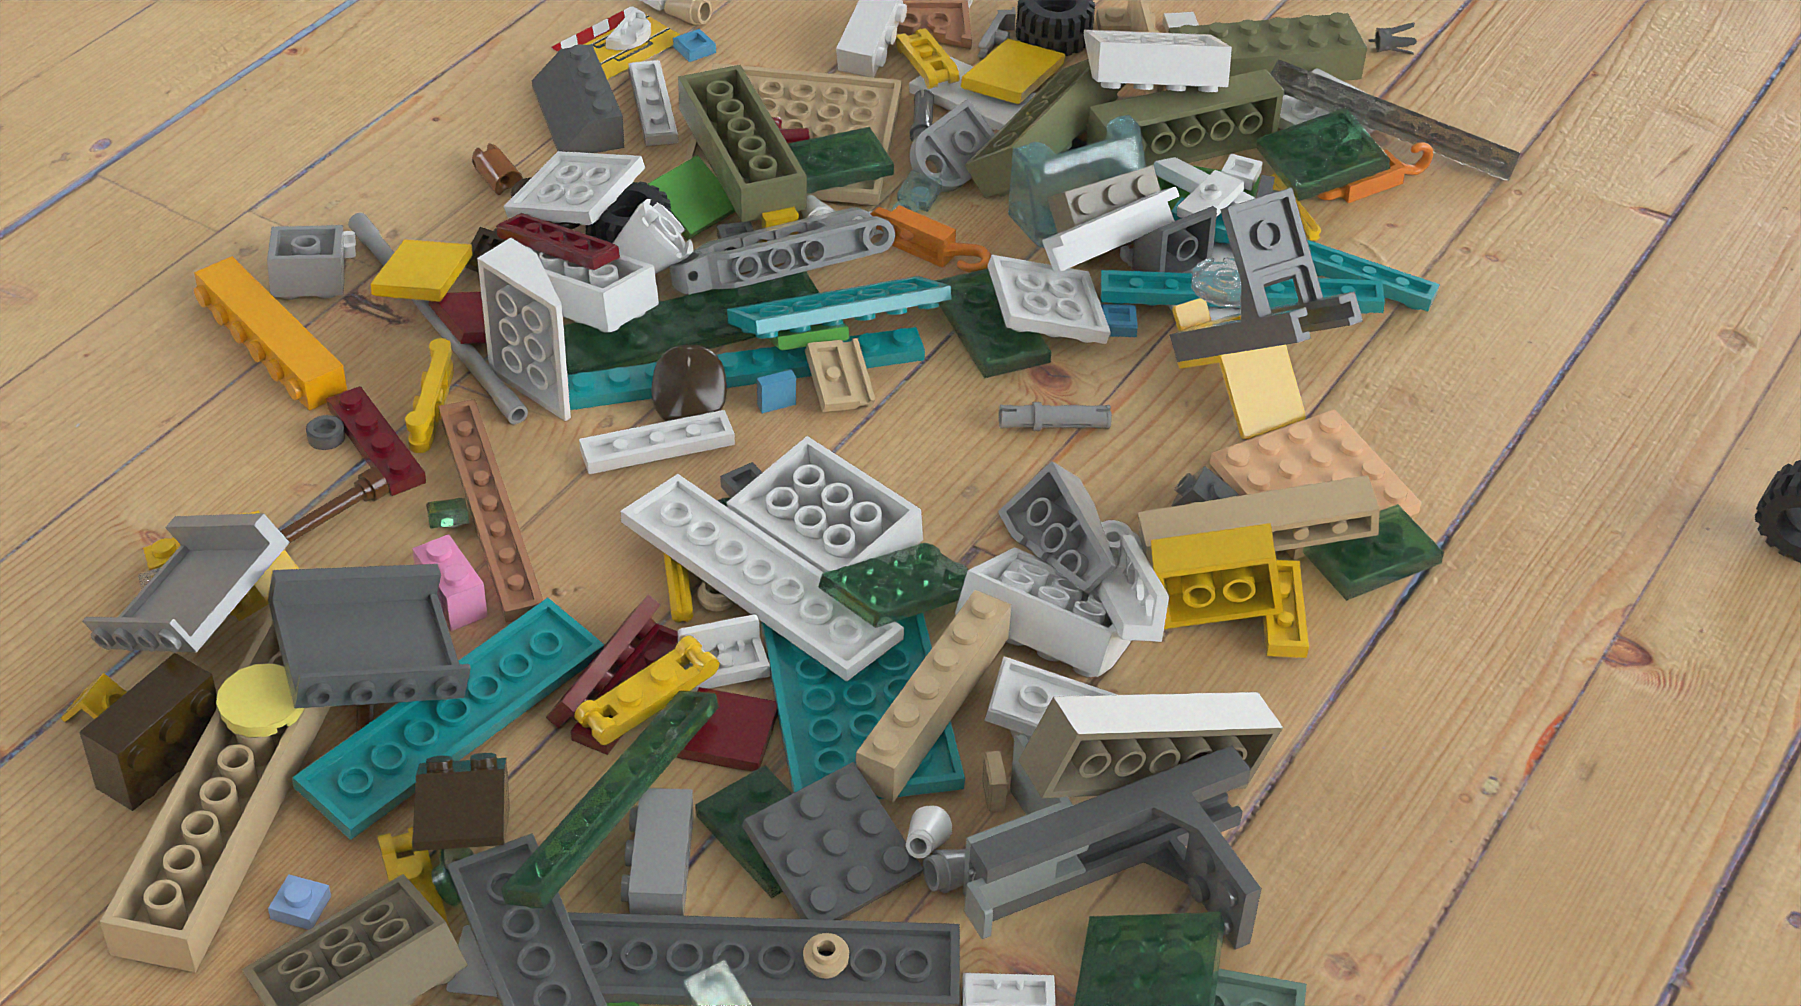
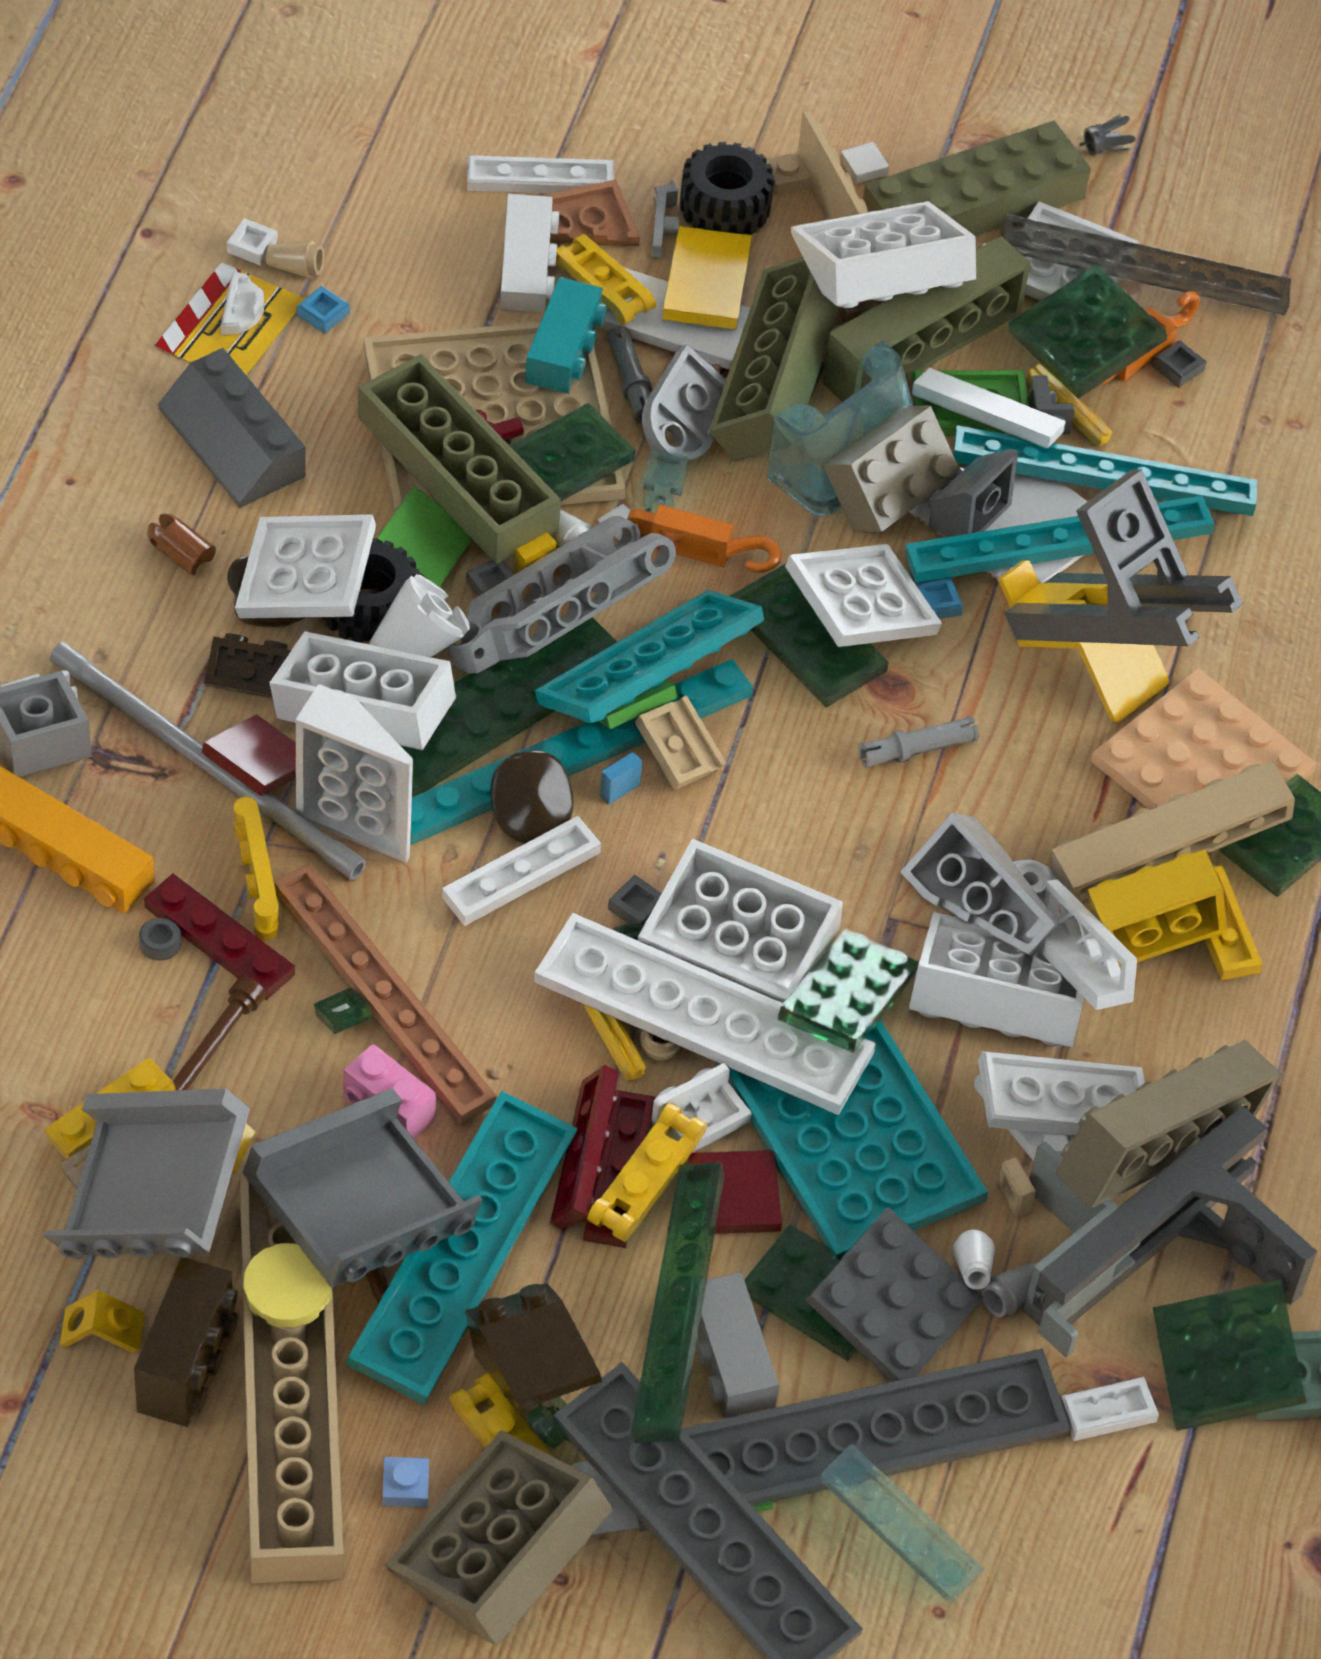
camera: 20 degrees left, 10 degrees up
(421, 270) = (178, 711): yellow tile -> none
(558, 241) = (322, 647): dark red tile -> none
(653, 103) = (312, 406): white tile -> none
(826, 966) = (937, 1424): tan plate -> none
(872, 82) = (565, 335): none -> teal brick
(933, 695) = (934, 1109): tan brick -> none
(1110, 230) = (906, 495): white fence -> none
(1201, 487) = (1101, 802): dark grey bracket -> none
(1215, 191) = (994, 424): white plate -> none
(1217, 282) = (1045, 536): clear tile -> none
(1243, 169) = (1007, 373): white plate -> none
(1401, 197) = (1179, 363): none -> dark grey tile

